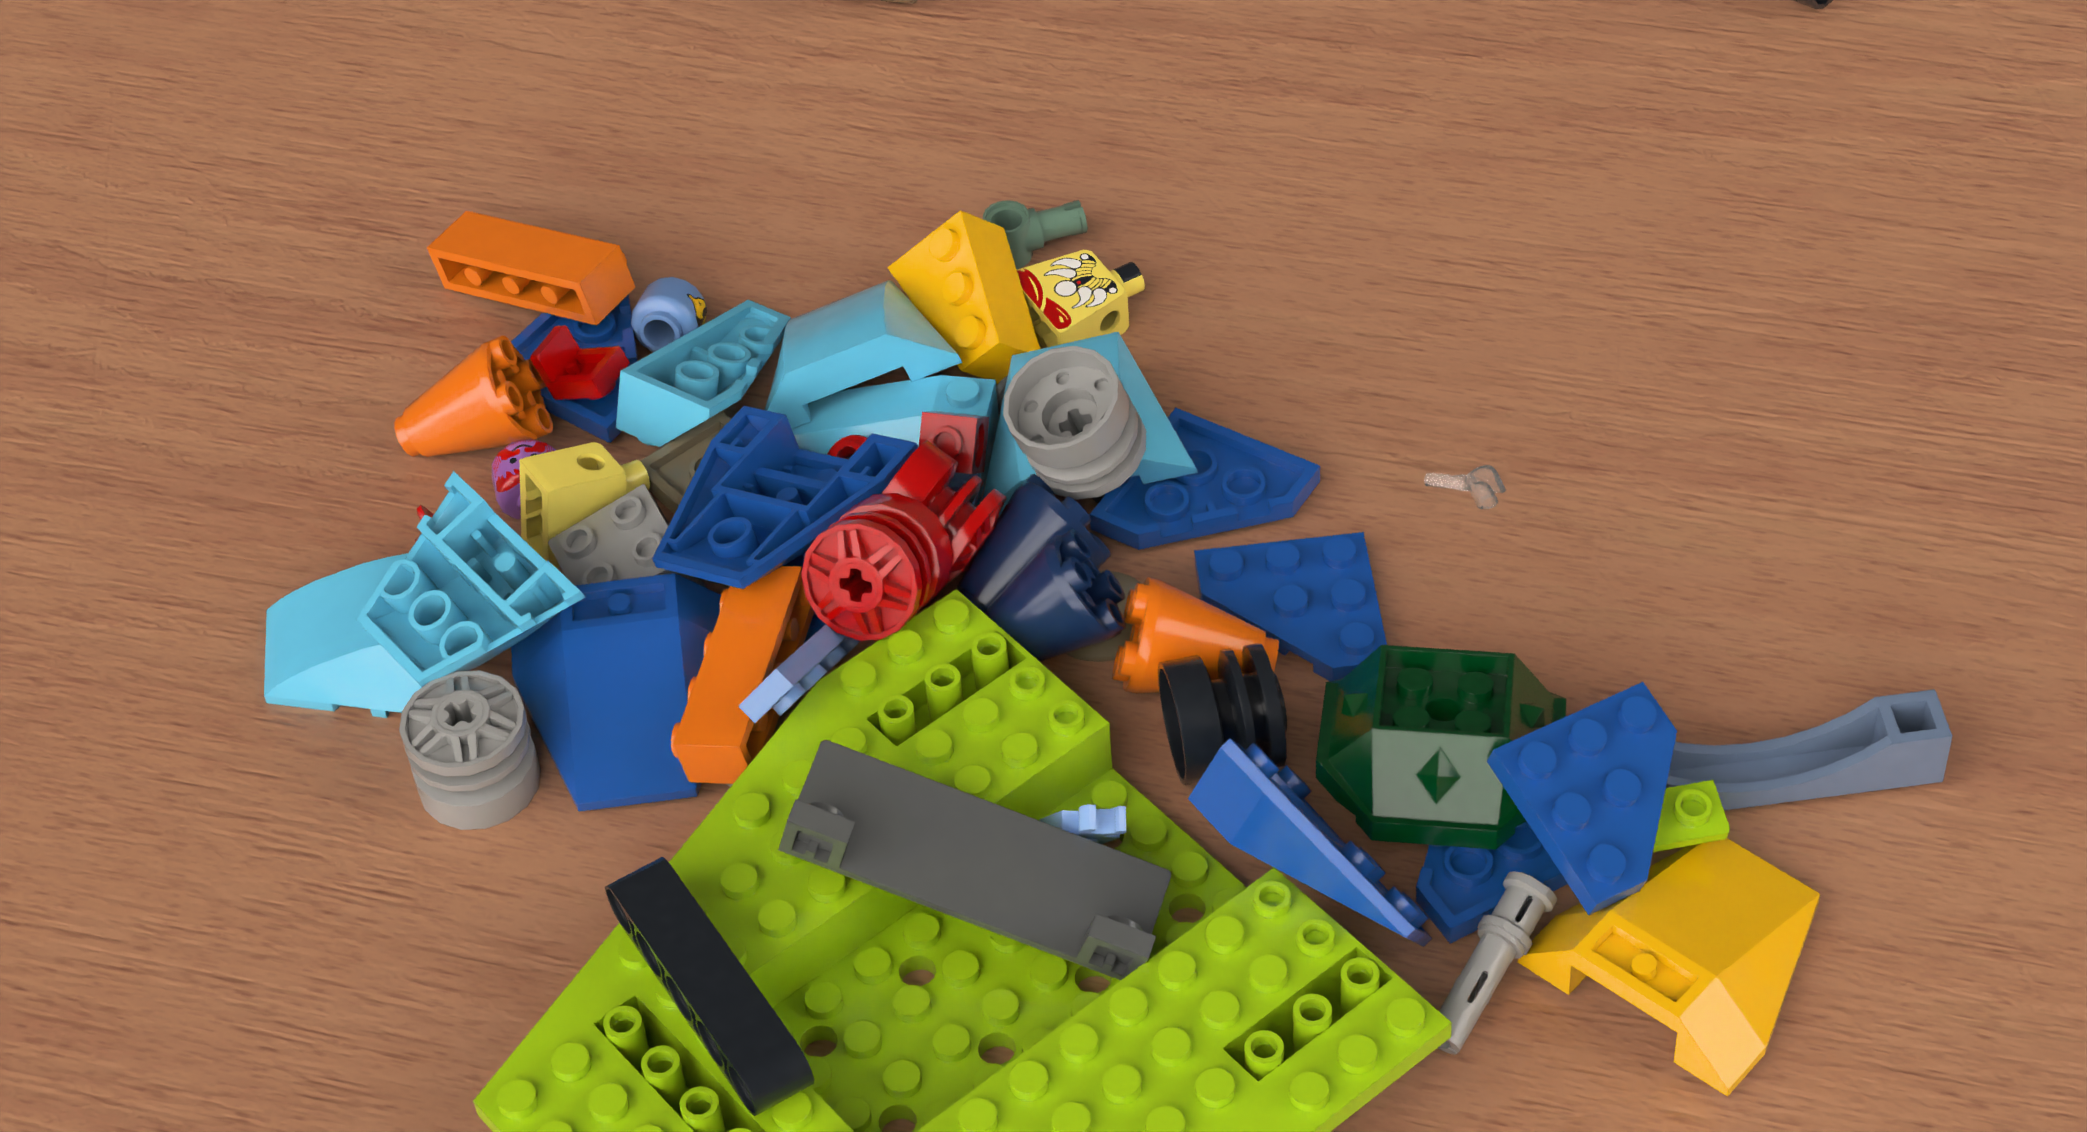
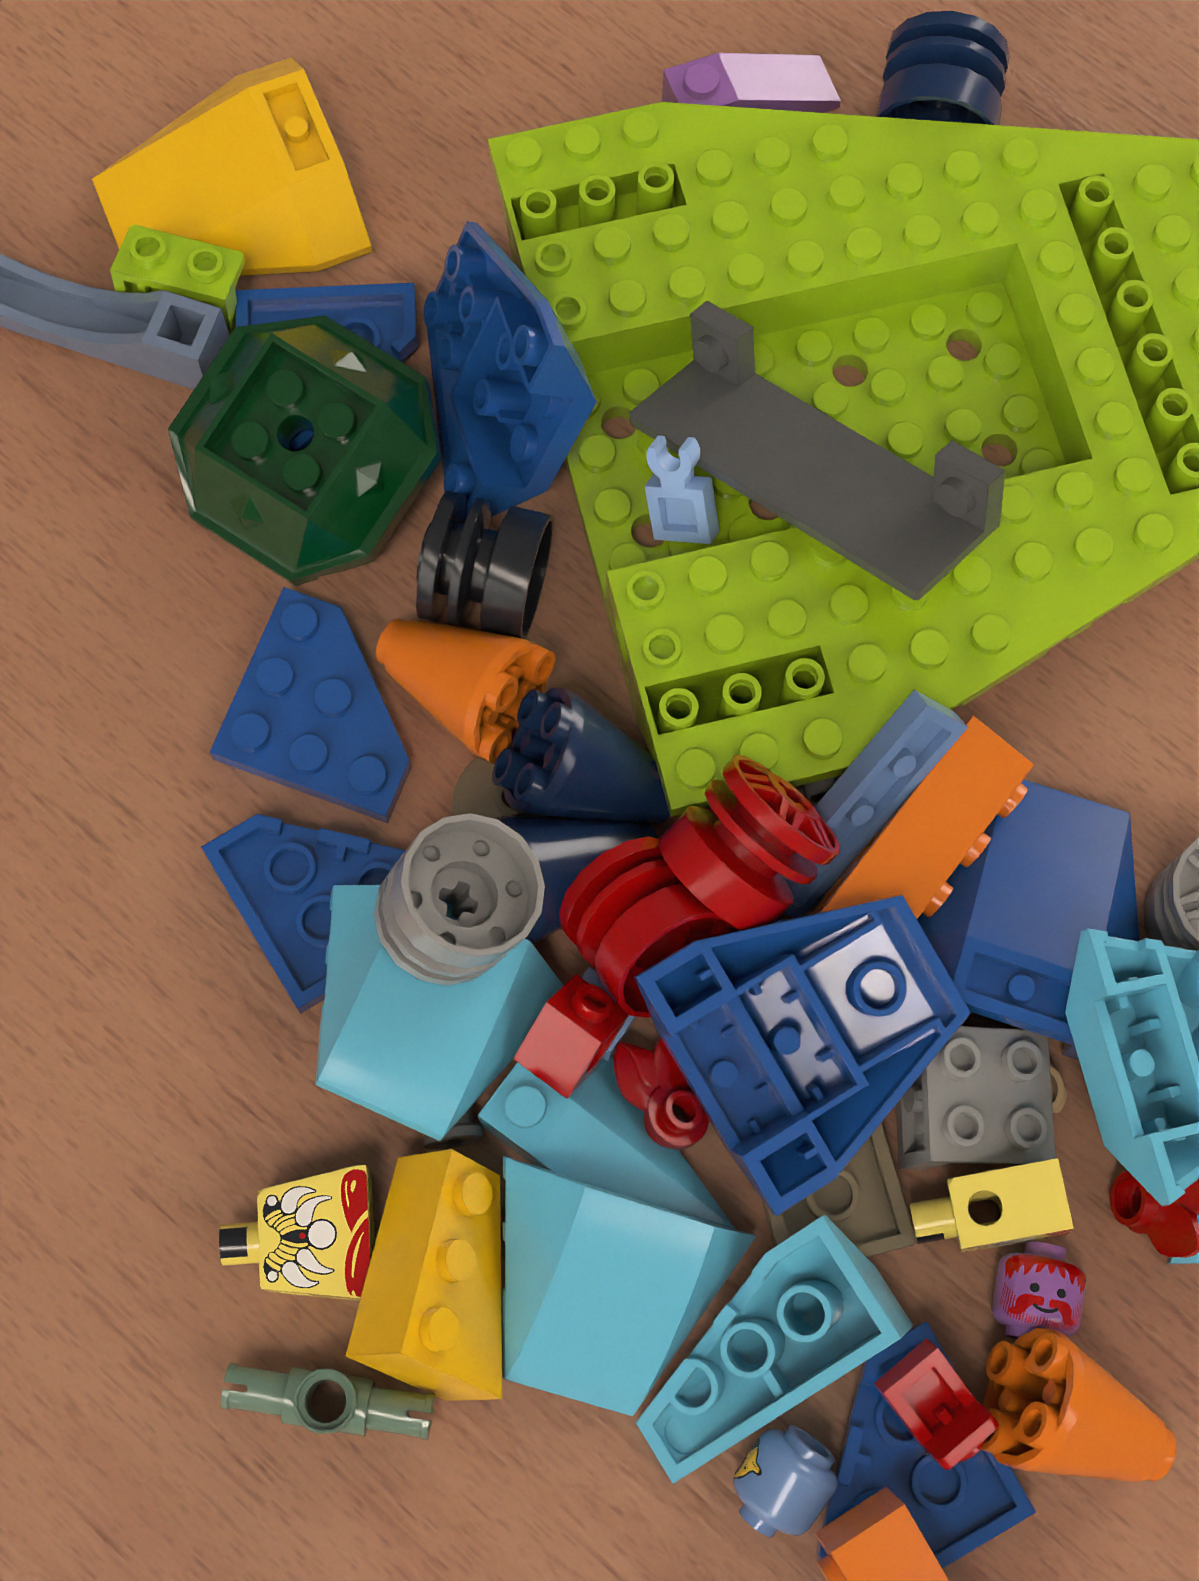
camera: 160 degrees left, 25 degrees up
(709, 986) = (1116, 433): black beam -> none
(1480, 482) = (71, 767): clear hand -> none
(1502, 938) = (381, 243): light grey pin -> none
(1594, 791) = (225, 273): blue plate -> none

